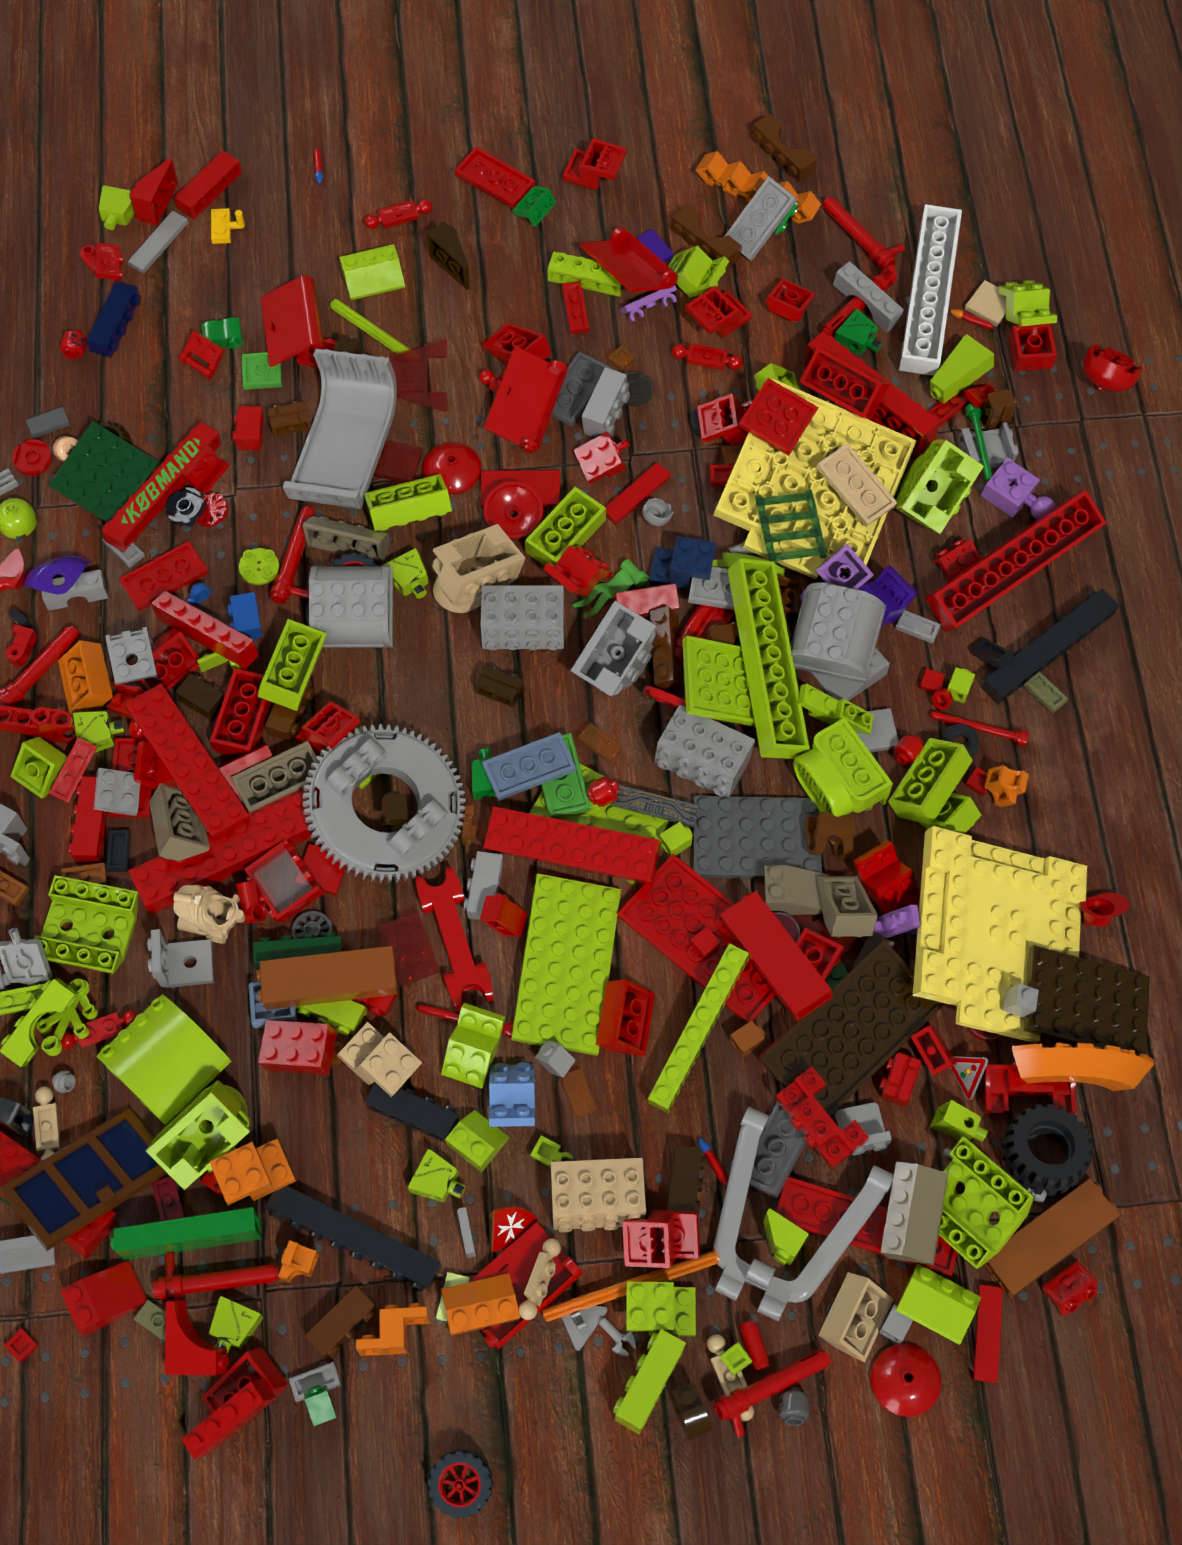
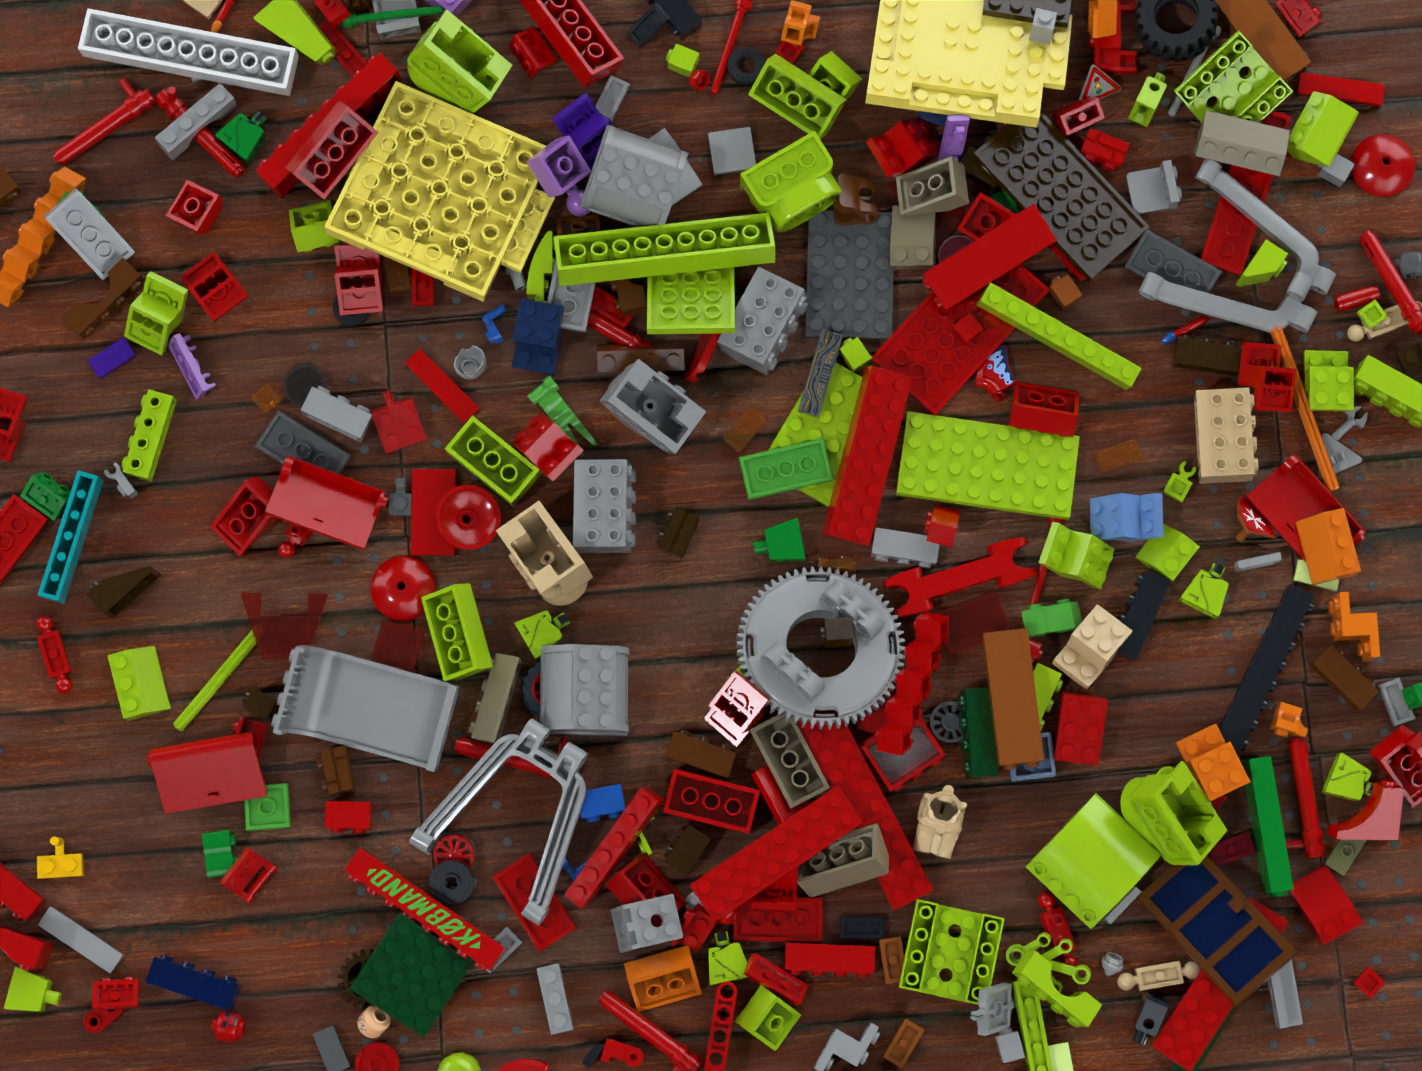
camera: 85 degrees left, 15 degrees up
(69, 566) = (539, 1038): dark purple piece -> none
(111, 1081) = (1121, 905): none -> light grey tile
(116, 792) = (802, 930): light grey plate -> none
(170, 959) = (983, 863): light grey bracket -> none
(205, 470) = (406, 860): red bracket -> none
(249, 565) = (531, 784): lime plate -> none
(250, 903) = (927, 783): red piece -> none
(278, 575) = (561, 767): none -> light grey piece
(292, 664) = (665, 746): lime brick -> none
(344, 884) = (913, 683): none -> red brick
(409, 1022) = (1053, 618): none -> bright green brick
(497, 218) = (70, 537): none -> teal brick
(528, 766) = (780, 499): sand blue plate -> none
(530, 461) = (400, 502): none -> dark grey plate
(539, 1279) = (1296, 487): tan plate -> none
(542, 257) = (125, 486): none -> light grey plate
(555, 1058) = (1088, 476): light grey brick -> none
(575, 308) = (195, 449): red plate -> none
(603, 791) = (808, 423): red head -> none
(631, 262) = (145, 384): red door -> none
(647, 599) = (580, 376): brick -> none
(660, 973) = (995, 374): none -> red arm
(688, 531) = (493, 334): none -> blue plate
(707, 356) = (267, 303): red plate -> none
(778, 416) = (375, 222): red plate -> none
(811, 514) = (511, 193): clear green bar -> none
(815, 1123) = (1151, 233): red bracket -> none
(831, 710) = (718, 185): lime slope -> none
(856, 484) = (455, 146): tan plate -> none
(856, 1316) = (1329, 205): tan slope -> none
(908, 749) = (758, 117): red head -> none
(932, 680) = (676, 88): red tile -> none

